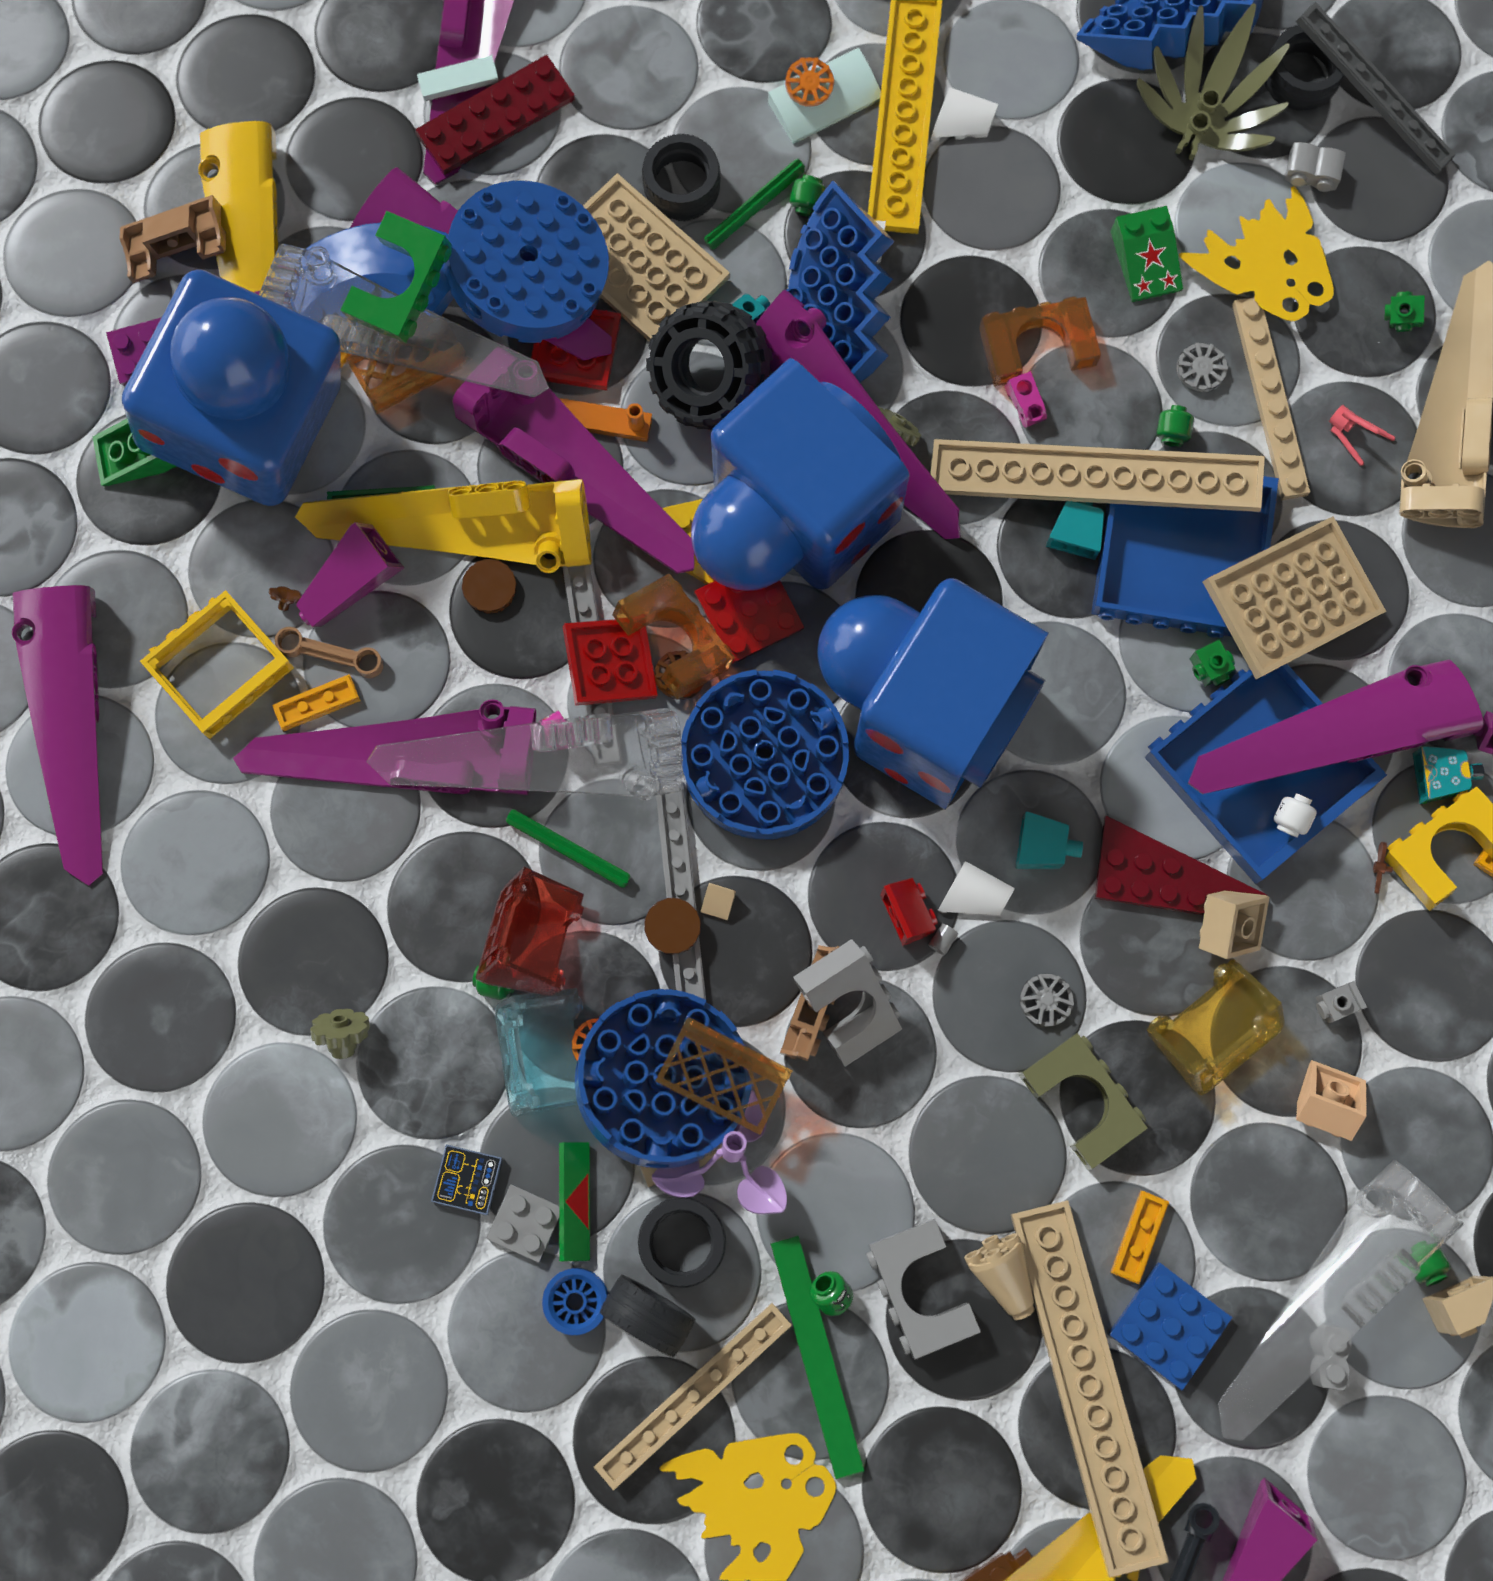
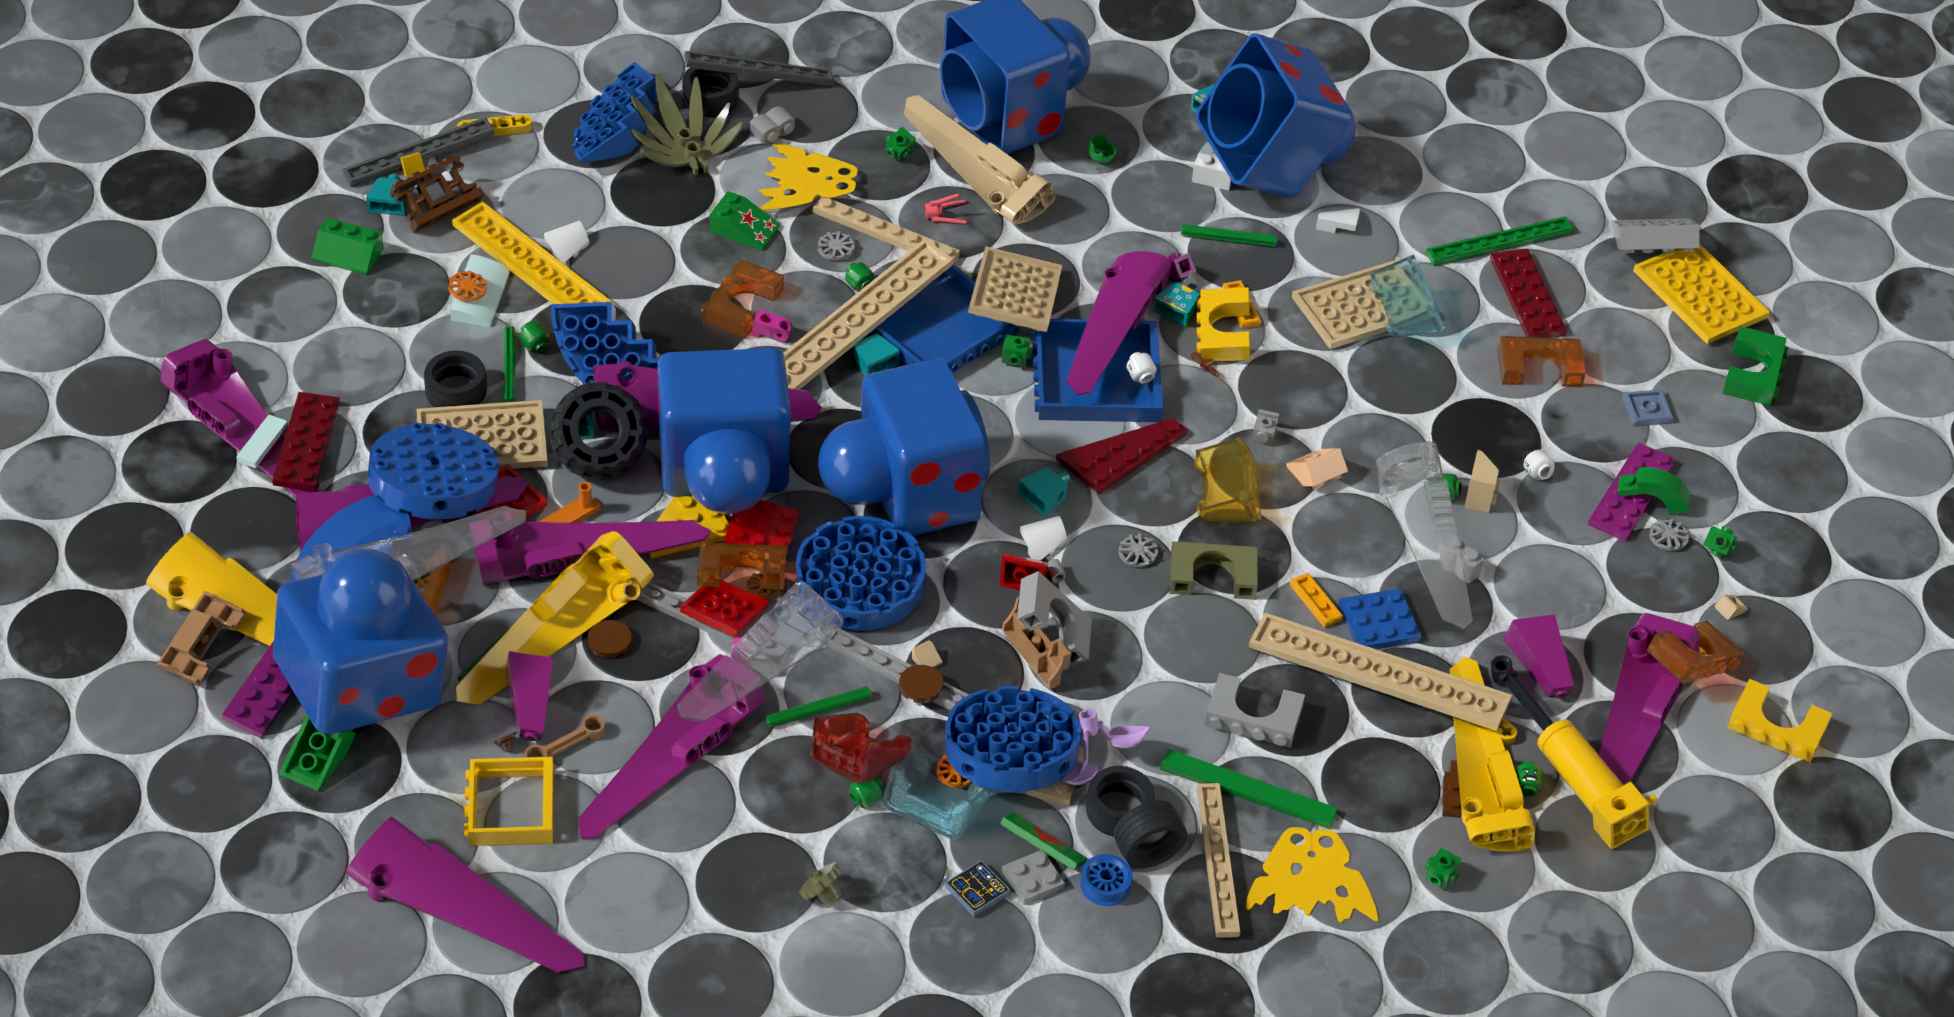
camera: 55 degrees left, 30 degrees down
(316, 702) = (590, 771): light orange tile -> none
(399, 314) = (386, 492): green arch -> none
(736, 1053) = (1034, 687): clear orange fence -> none
(831, 1293) = (1218, 750): green head -> none
(1004, 1273) = (1281, 665): tan cone -> none
(1233, 923) = (1174, 437): tan slope -> none

